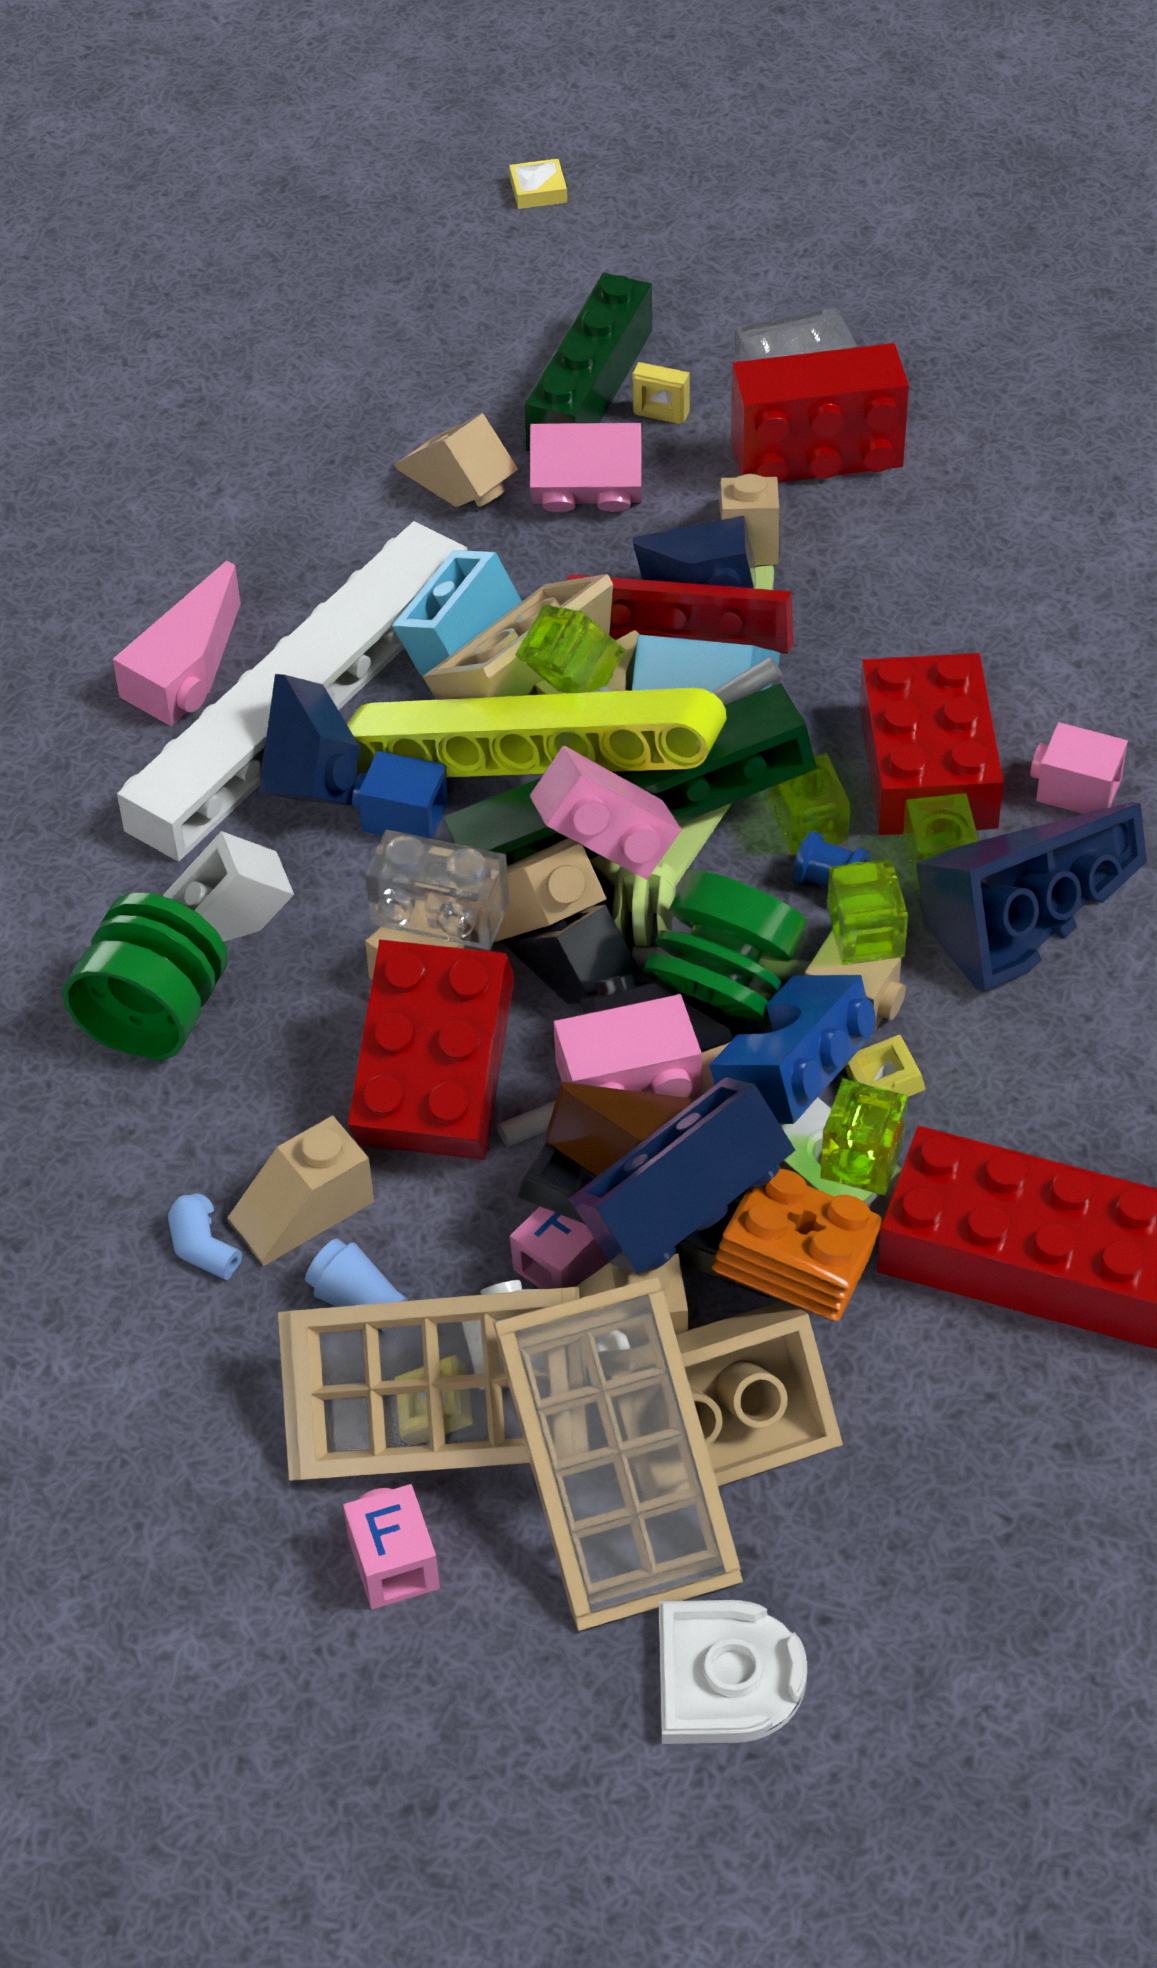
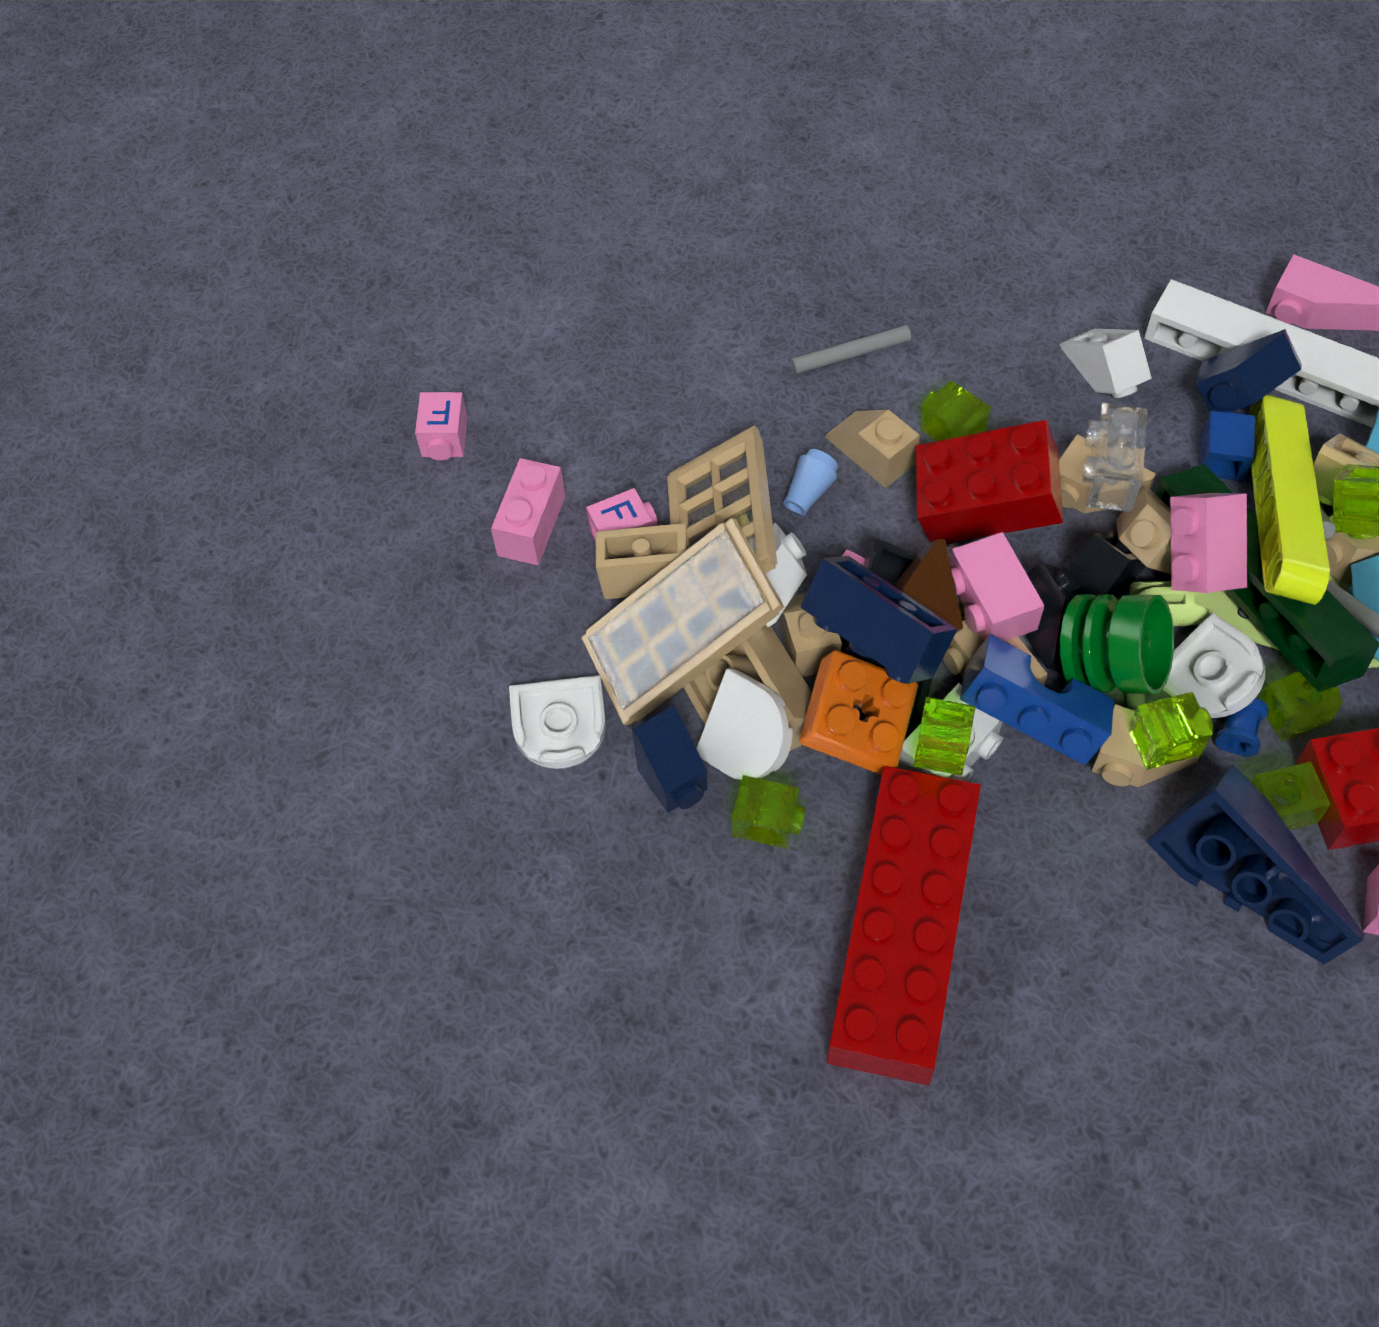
camera: 85 degrees right, 10 degrees up
(105, 1210) = (851, 349): none -> light grey bar
(124, 1813) = (441, 425): none -> bright pink brick
(145, 976) = (1018, 322): green wheel -> none
(193, 1239) = (832, 395): light blue arm -> none
(283, 1088) = (953, 413): none -> clear neon green brick
(342, 1676) = (528, 511): none -> bright pink brick
(479, 1506) = (636, 555): none -> tan slope
(766, 852) = (1219, 668): none -> white tile
(802, 1392) = (745, 728): none -> white tile
(838, 1501) = (669, 760): none -> dark blue slope
(886, 1067) = (1049, 776): light yellow tile -> none
(918, 1397) = (767, 812): none -> clear neon green brick

